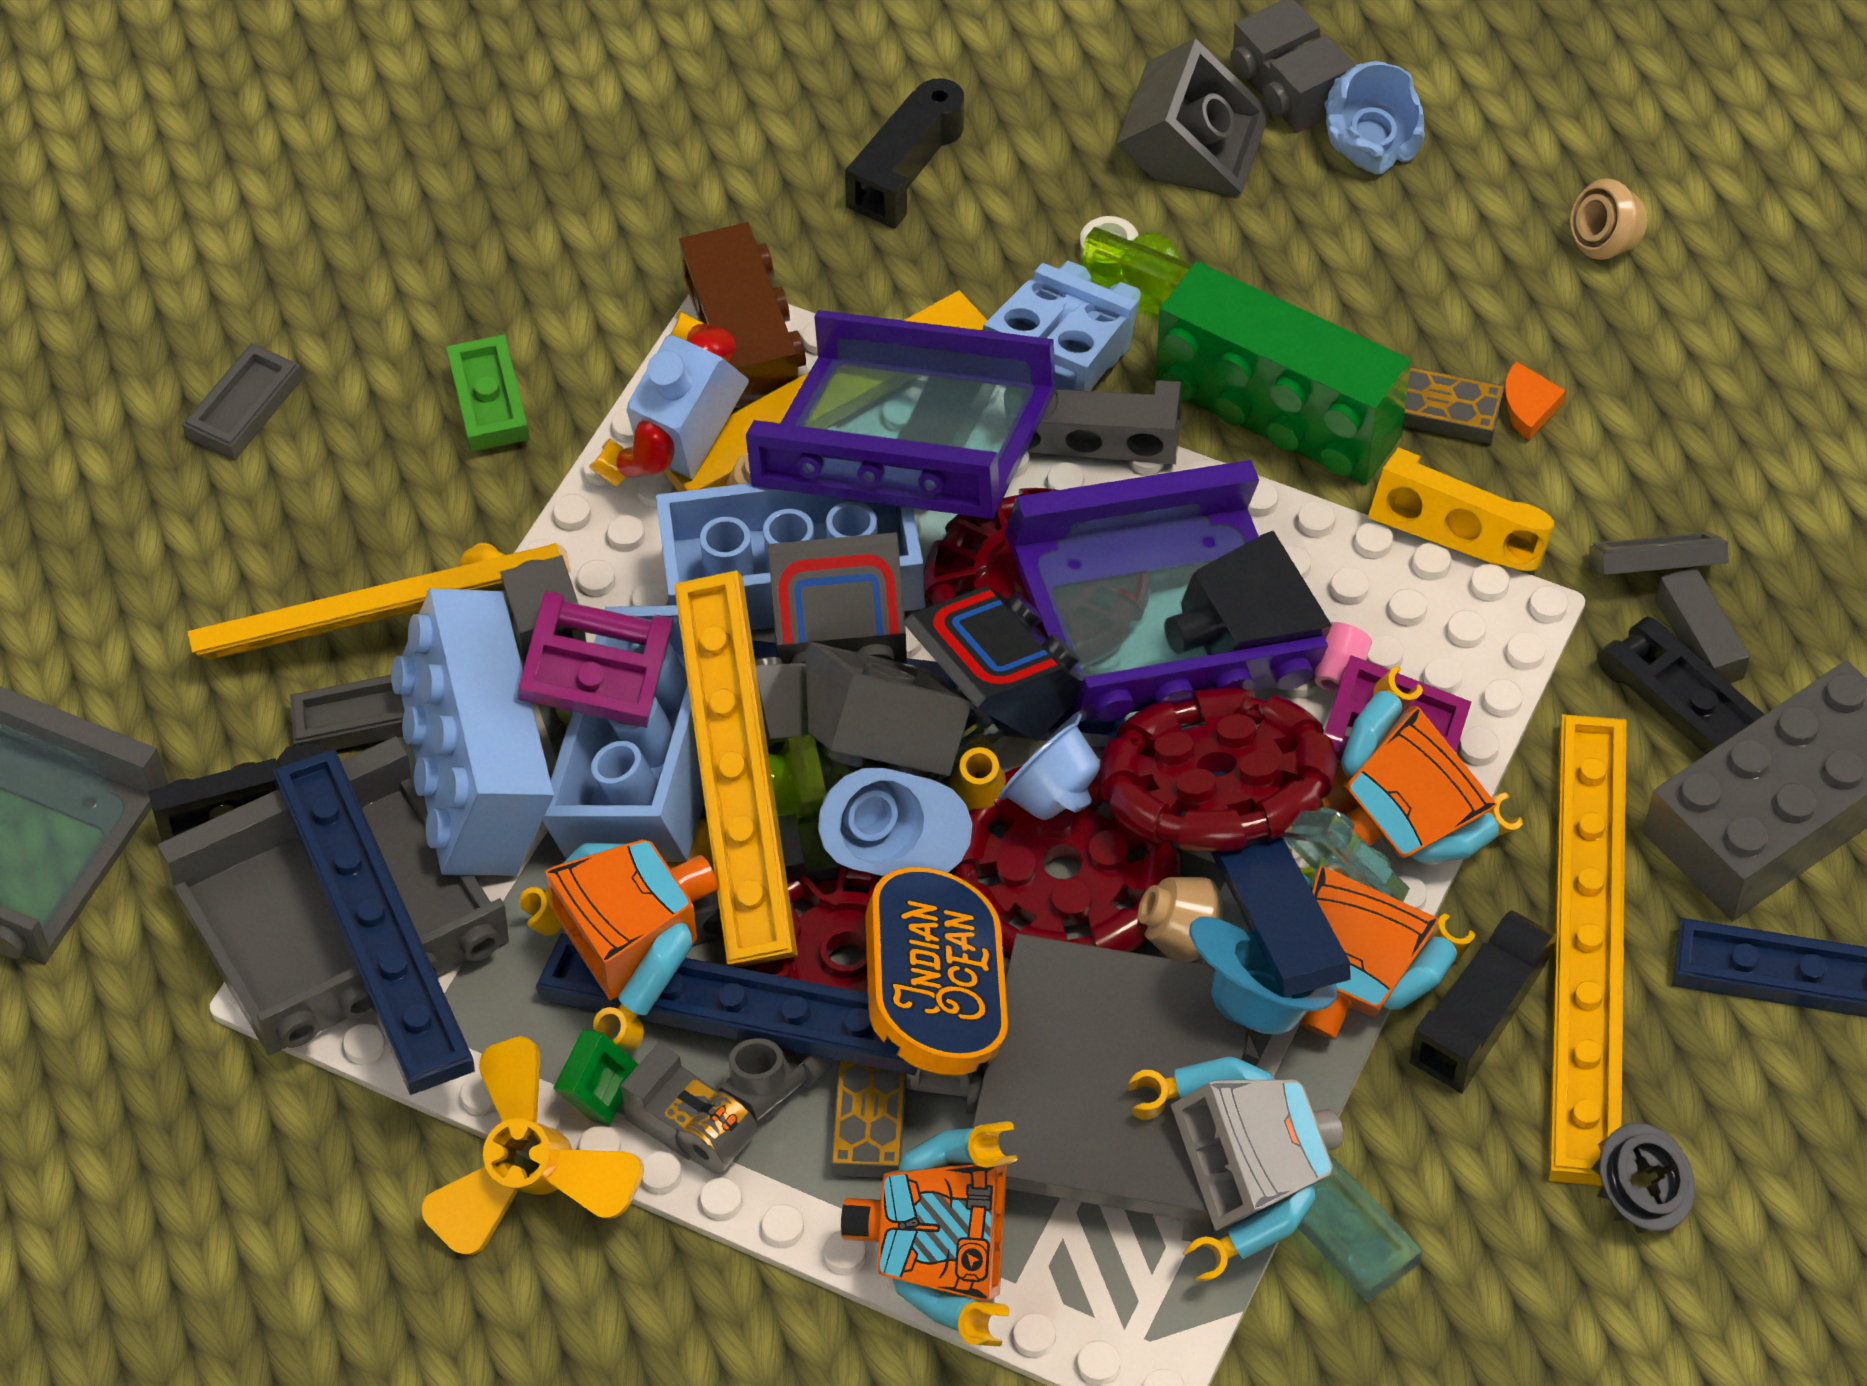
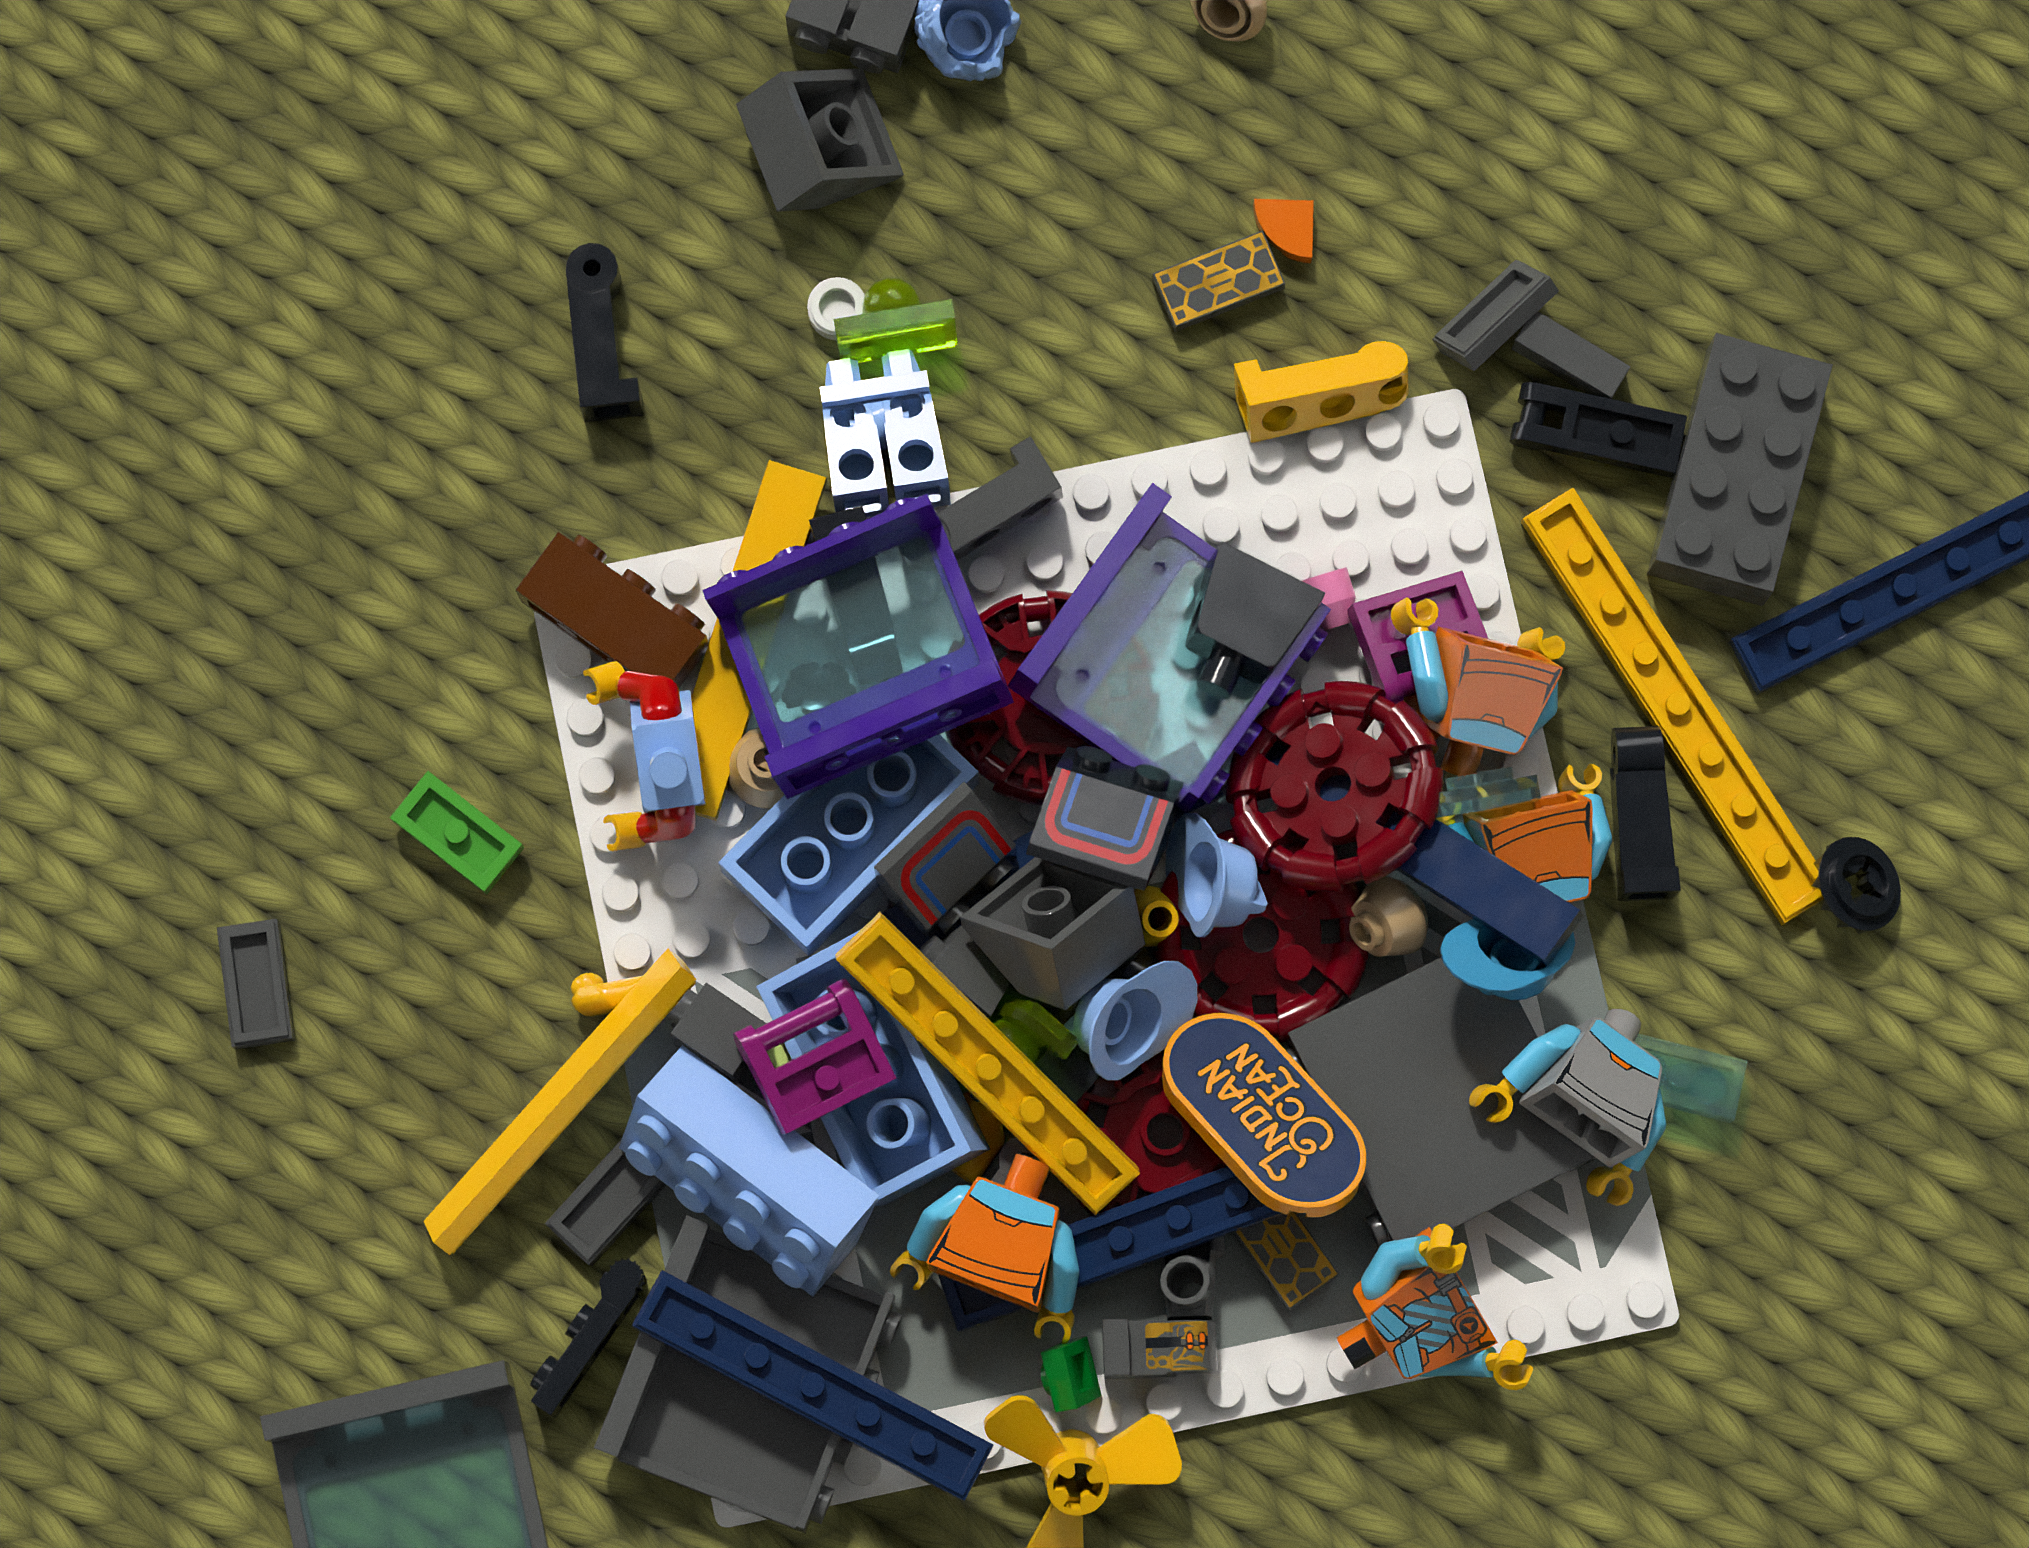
camera: 40 degrees left, 25 degrees up
(1283, 372) = (1095, 362): green brick -> none

